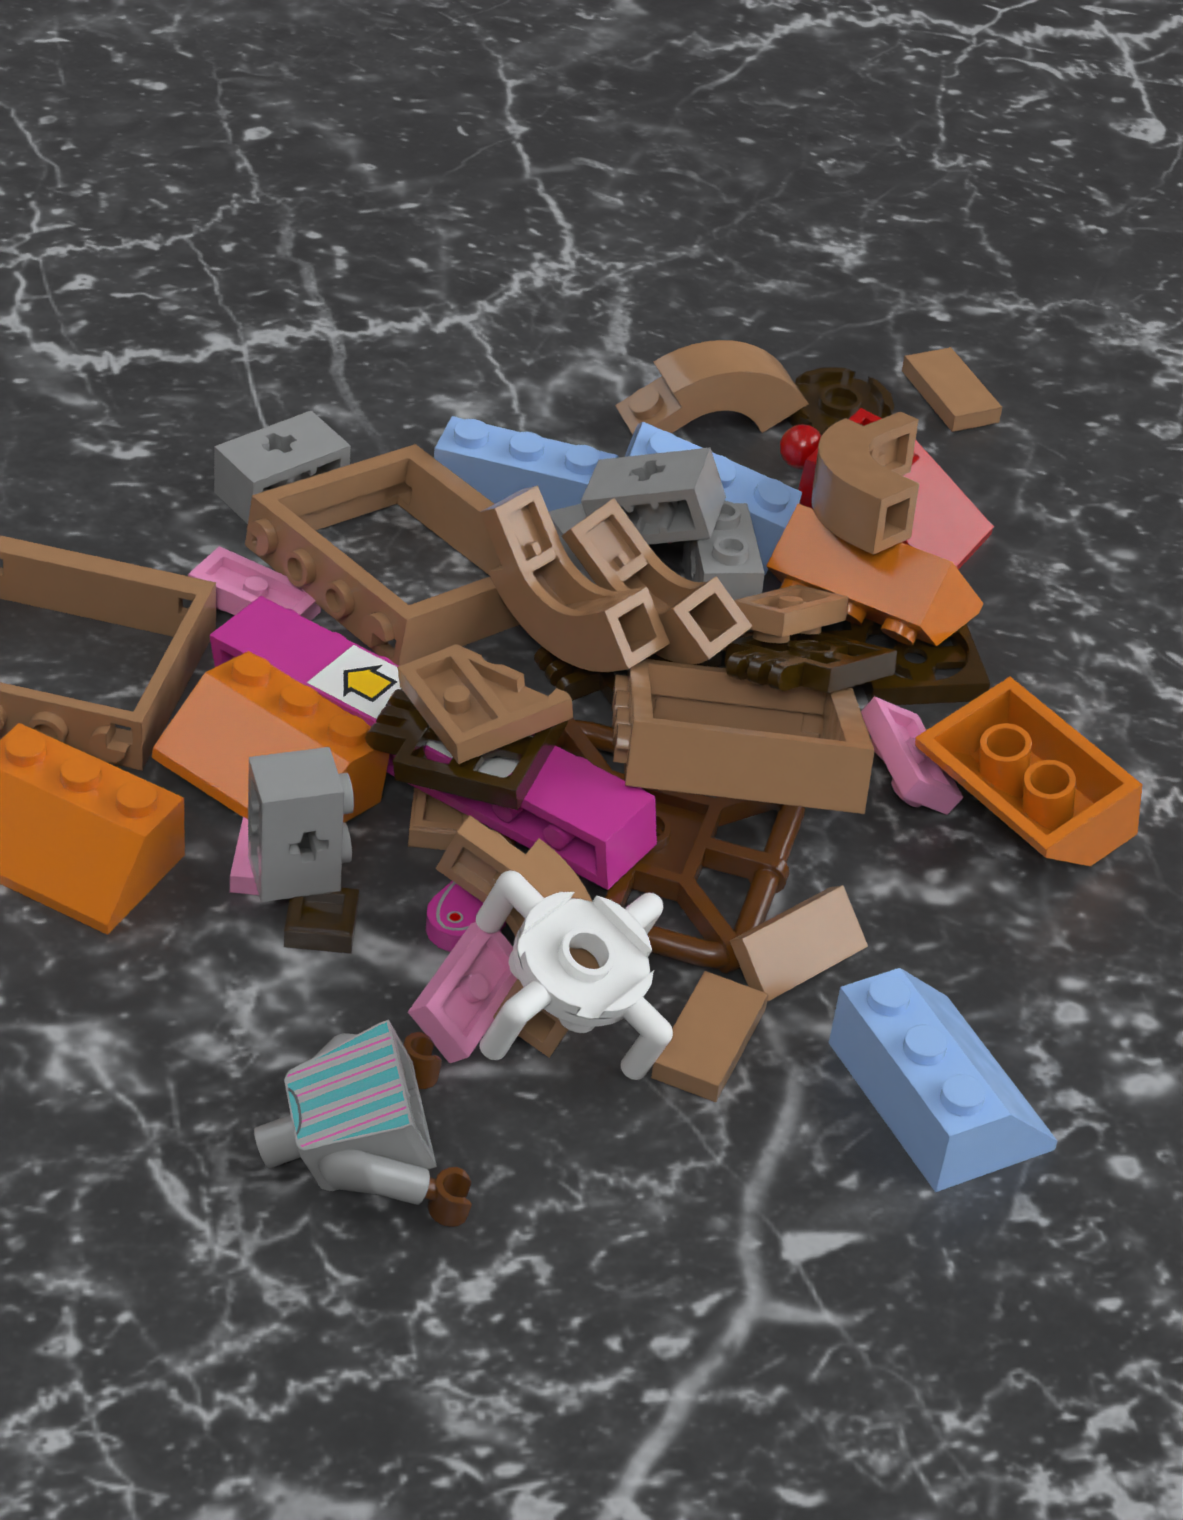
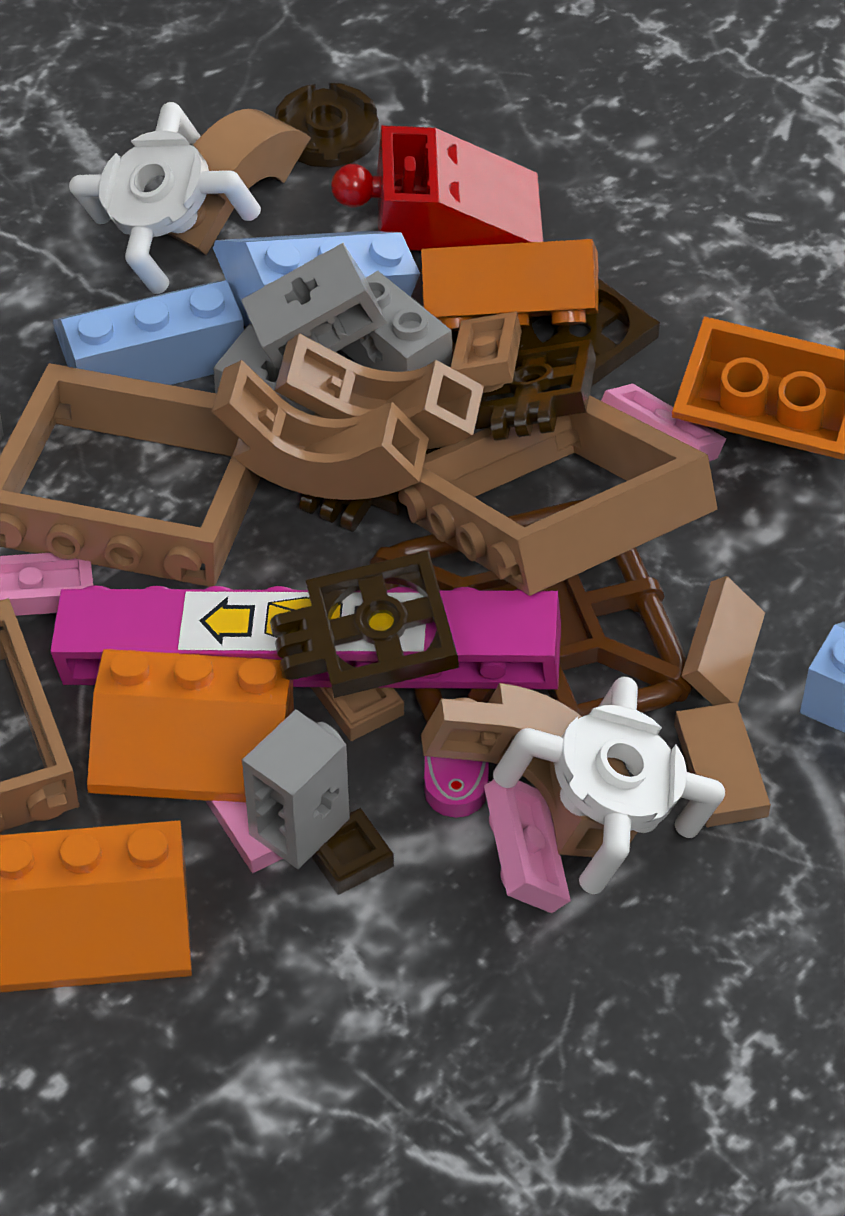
camera: 30 degrees left, 10 degrees up
(364, 1122) = (559, 1012): light grey torso -> none
(478, 703) = (366, 593): medium nougat wing -> none
(626, 364) = (169, 208): none -> white plate
(862, 484) = (467, 216): medium nougat arch -> none
(951, 389) = (398, 58): medium nougat tile -> none

